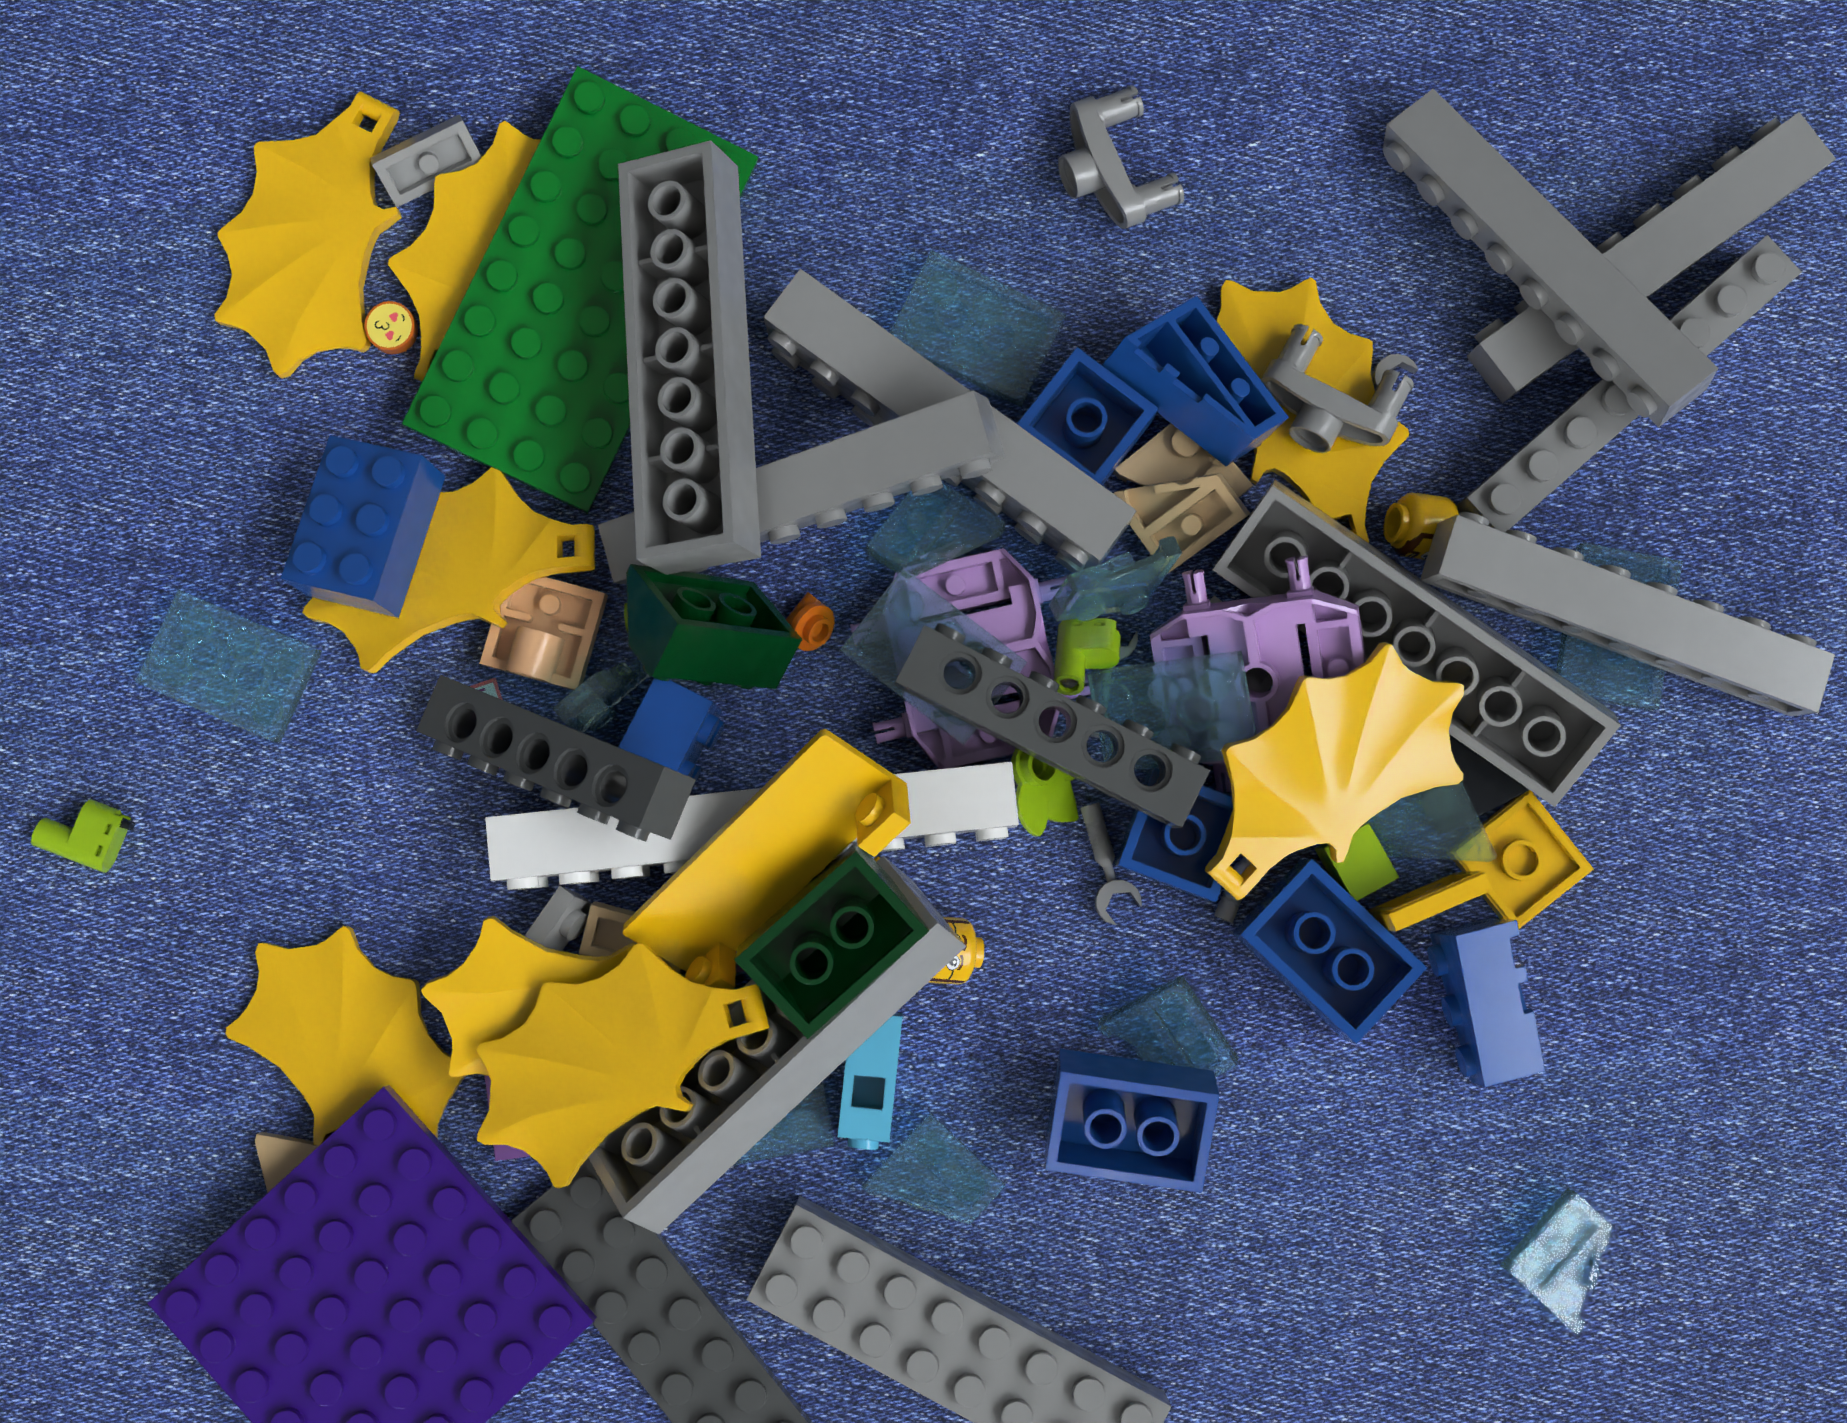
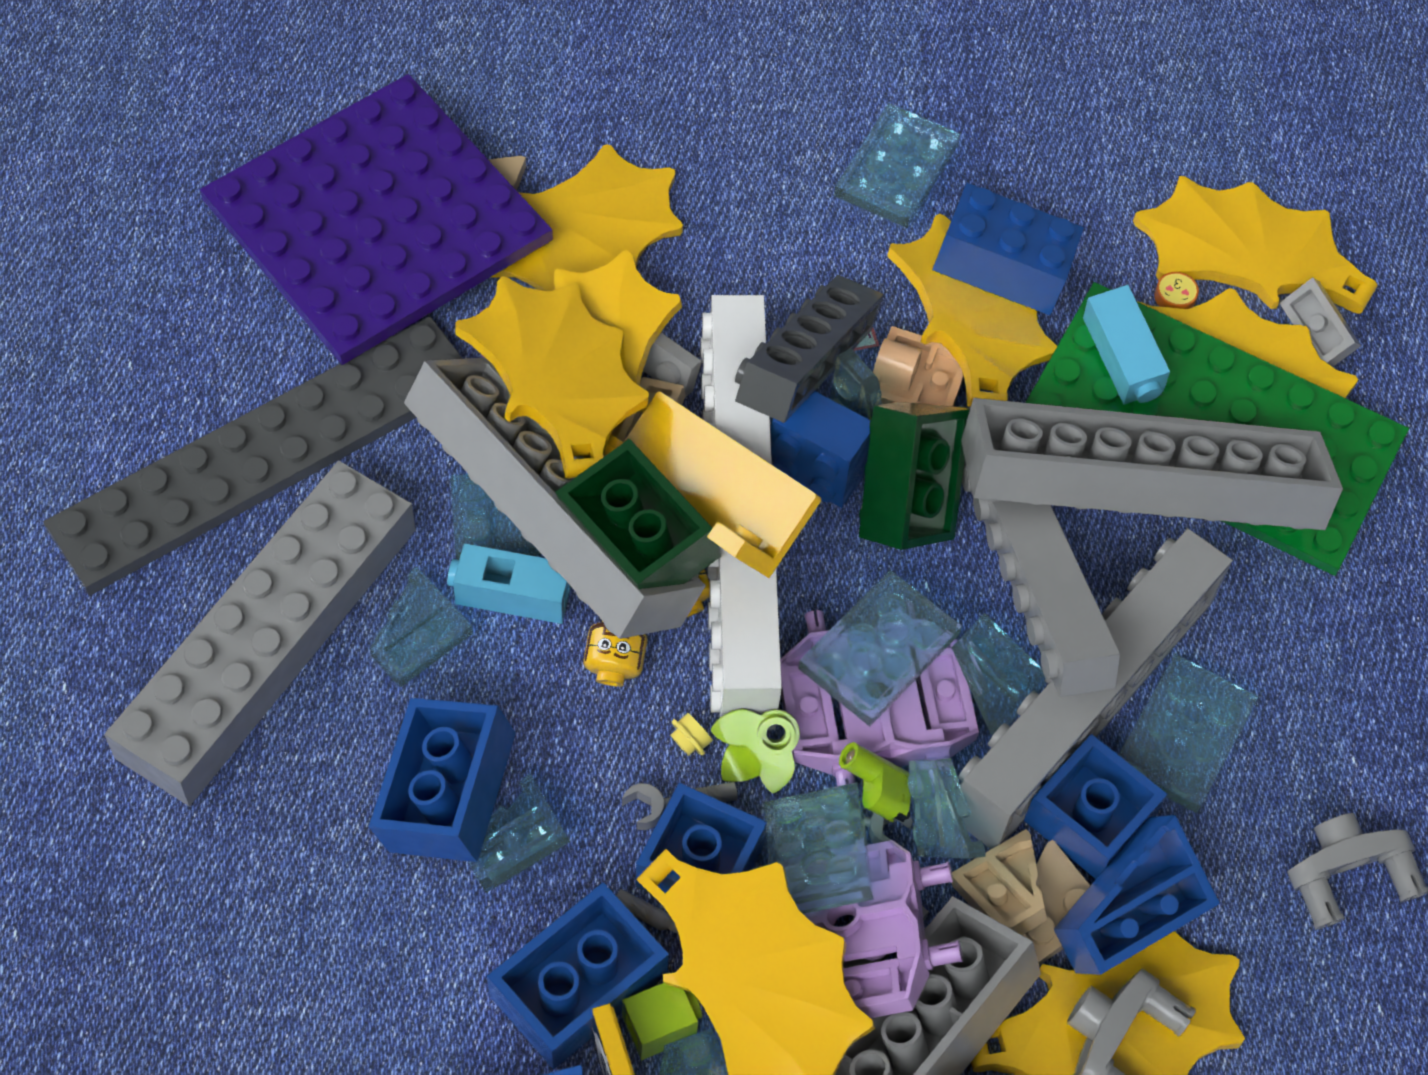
camera: 90 degrees right, 25 degrees down
(91, 841) = (768, 74): lime piece -> none
(504, 384) = (1126, 345): none -> medium azure brick
(812, 622) = (916, 571): orange plate -> none
(1033, 858) = (690, 735): none -> light yellow plate
(1179, 774) = (865, 622): dark grey brick -> none

